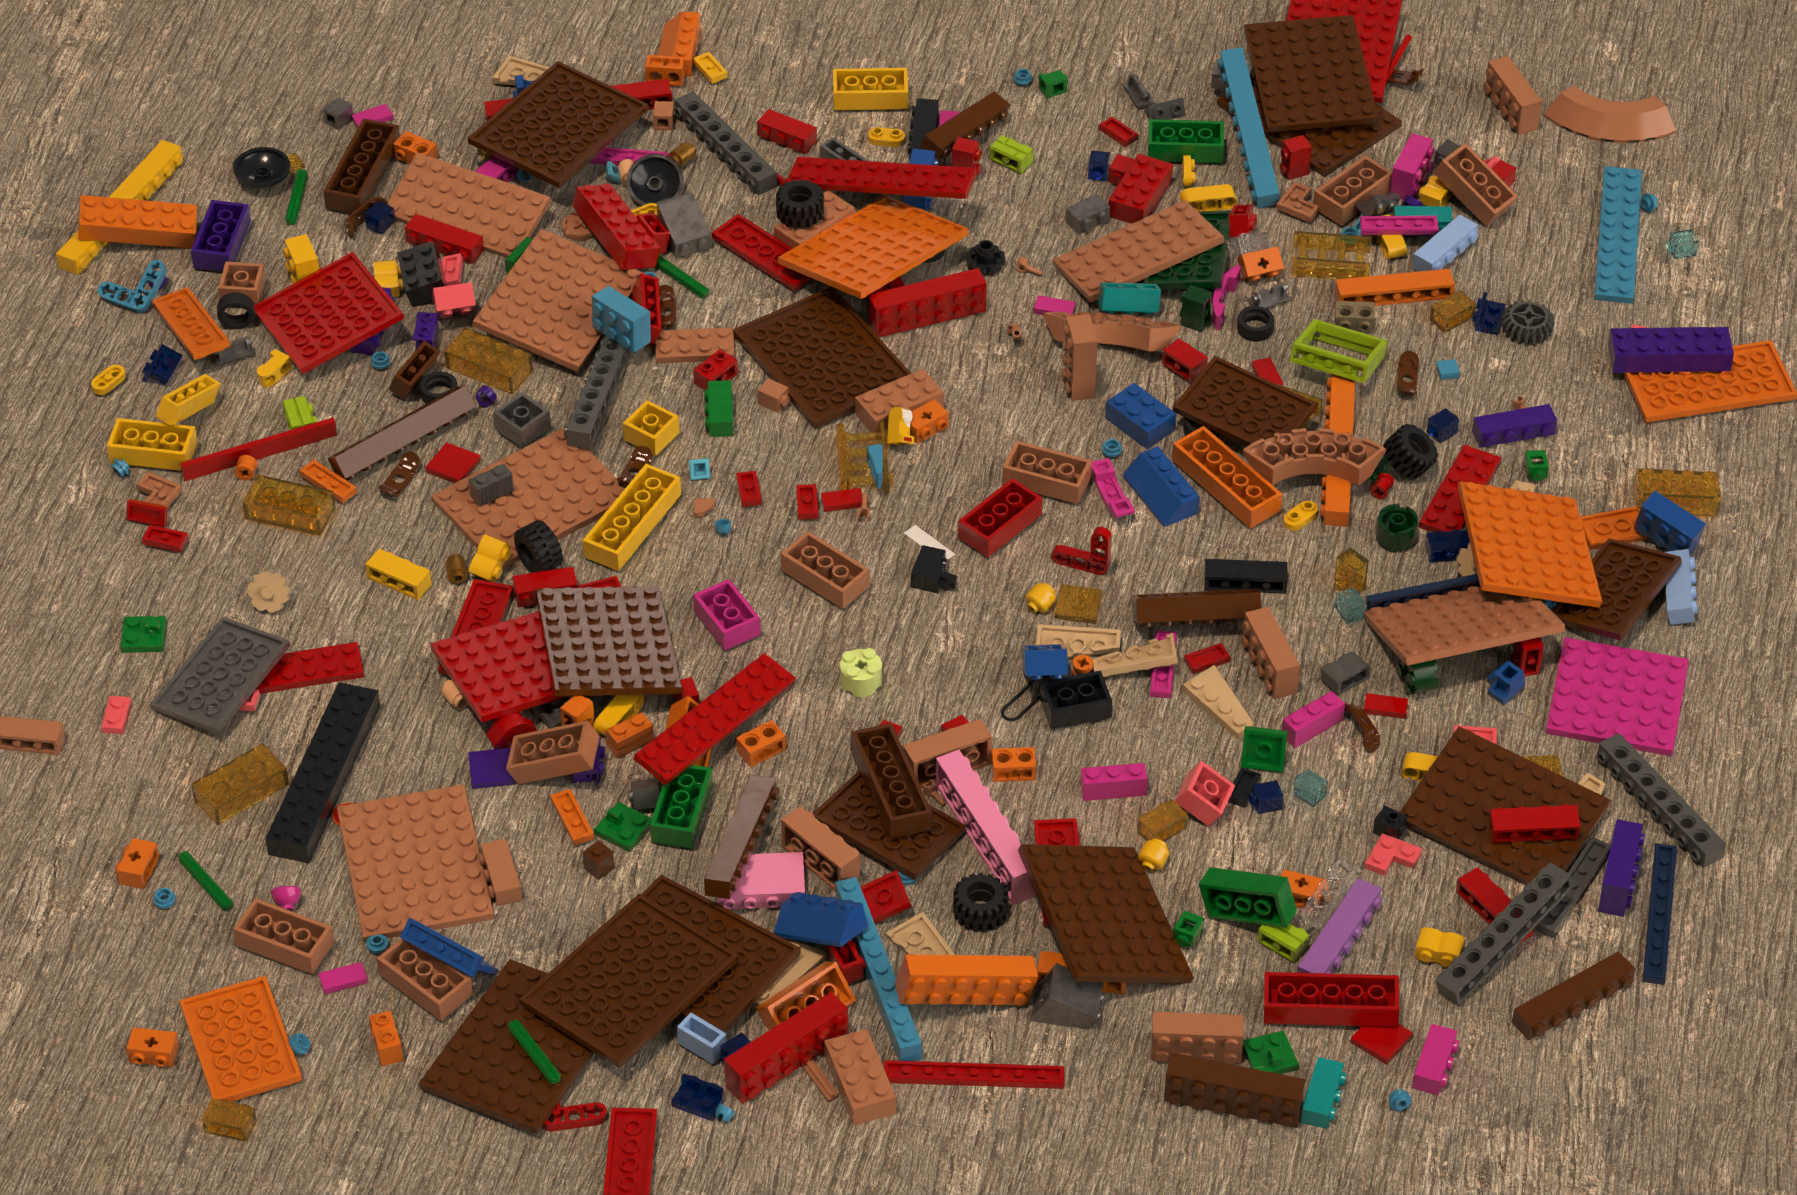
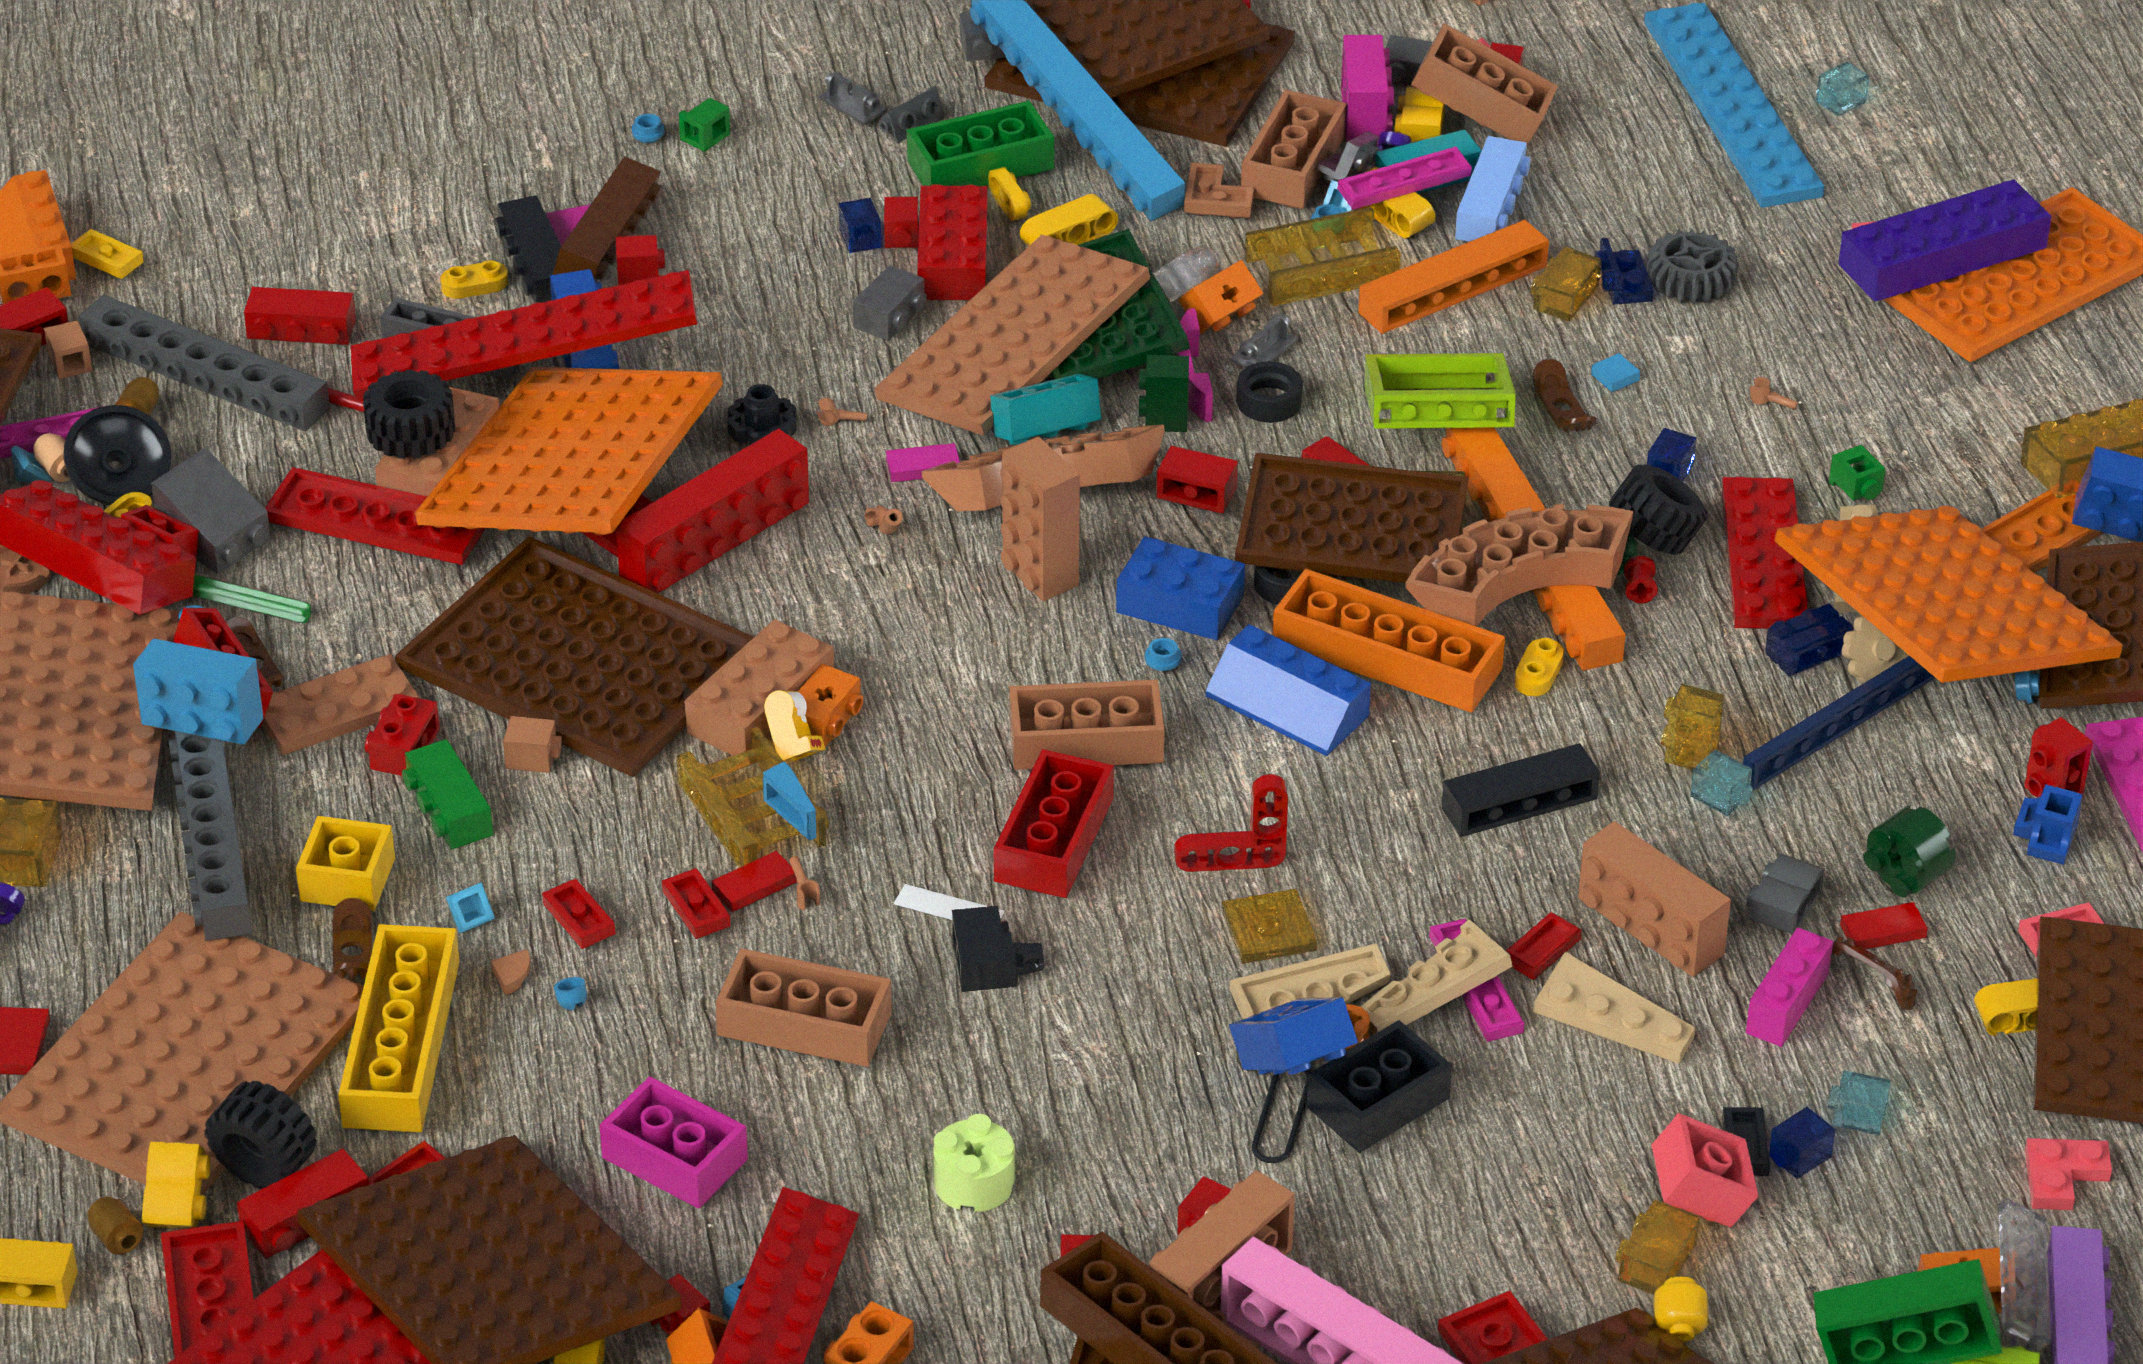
camera: 25 degrees left, 5 degrees down
(491, 485) = (107, 1052): dark grey brick -> none
(522, 420) = (97, 922): flat silver brick -> none
(870, 88) = (407, 211): yellow brick -> none
(1011, 154) = (704, 247): lime brick -> none
(1013, 764) = (1340, 1234): orange brick -> none
(1040, 598) = (1204, 935): yellow head -> none
(1109, 489) = (1206, 725): dark pink slope -> none
(1113, 781) = (1531, 1205): dark pink brick -> none
(1118, 131) = (855, 168): red tile -> none
(1194, 606) = (1480, 864): reddish brown brick -> none
(1242, 220) = (1154, 238): red brick -> none
(1264, 749) = (1750, 1061): green hinge -> none
(1295, 157) = (1175, 123): red brick -> none
(1355, 315) = (1421, 331): dark tan brick -> none
(1390, 823) = (2032, 1116): black brick -> none
(1396, 527) = (1713, 635): dark green brick -> none
(1460, 623) = (1930, 750): nougat plate -> none
(1514, 425) = (1781, 425): dark purple brick -> none
(1649, 202) = (1755, 42): dark azure plate -> none

